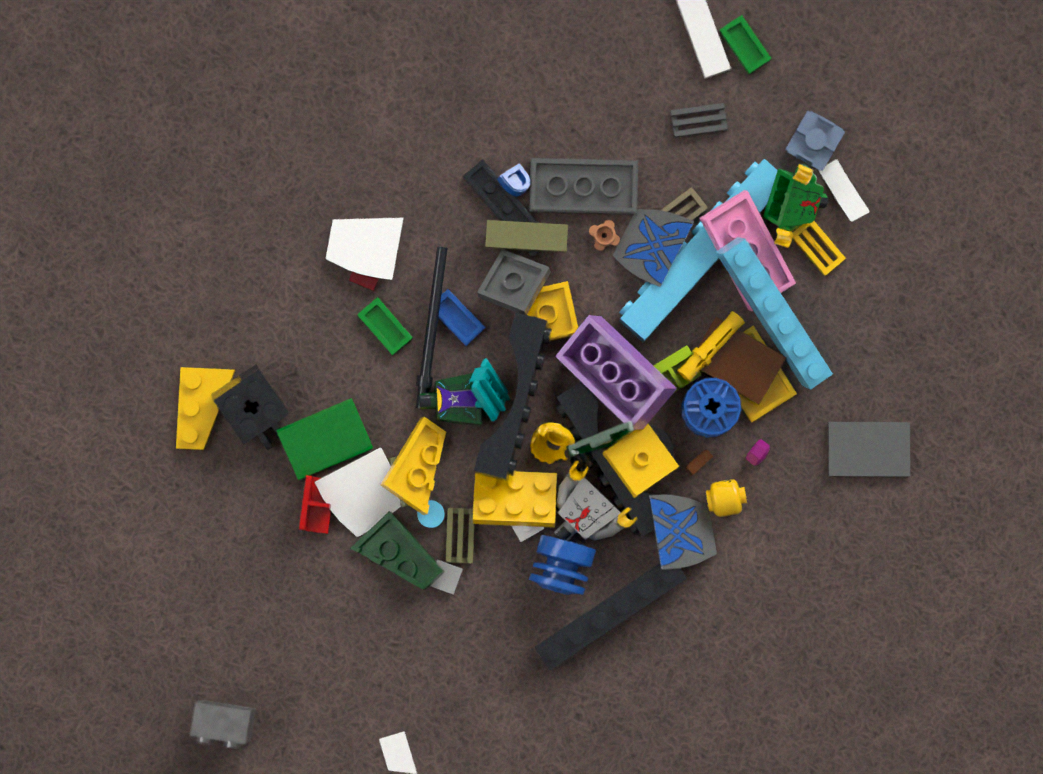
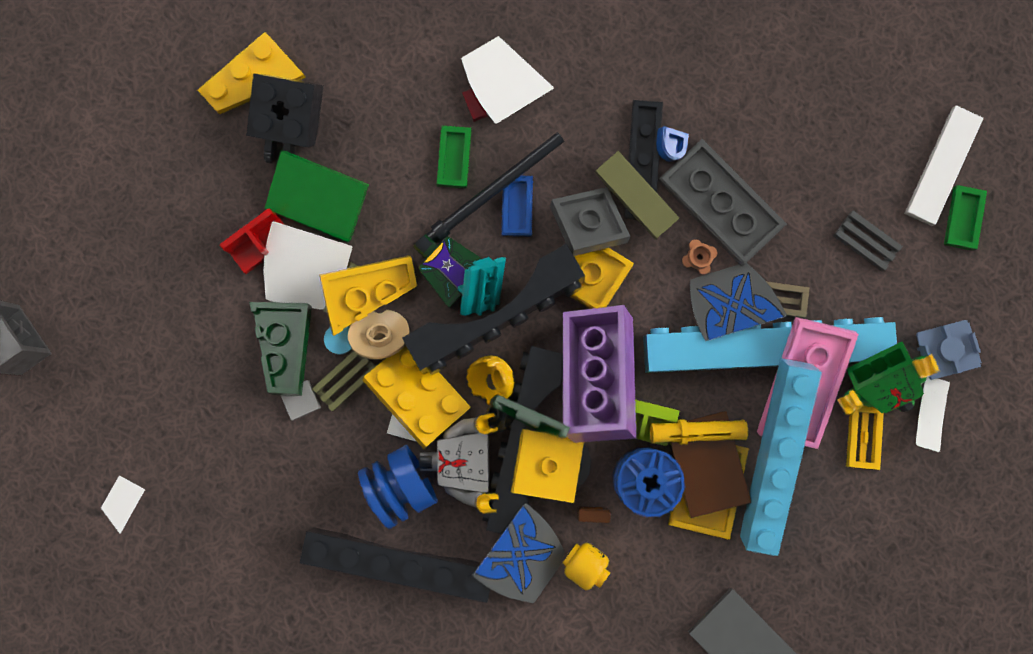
camera: 50 degrees right, 0 degrees up
(452, 475) = (364, 334): none -> tan dish
(758, 452) = (649, 555): magenta tile -> none

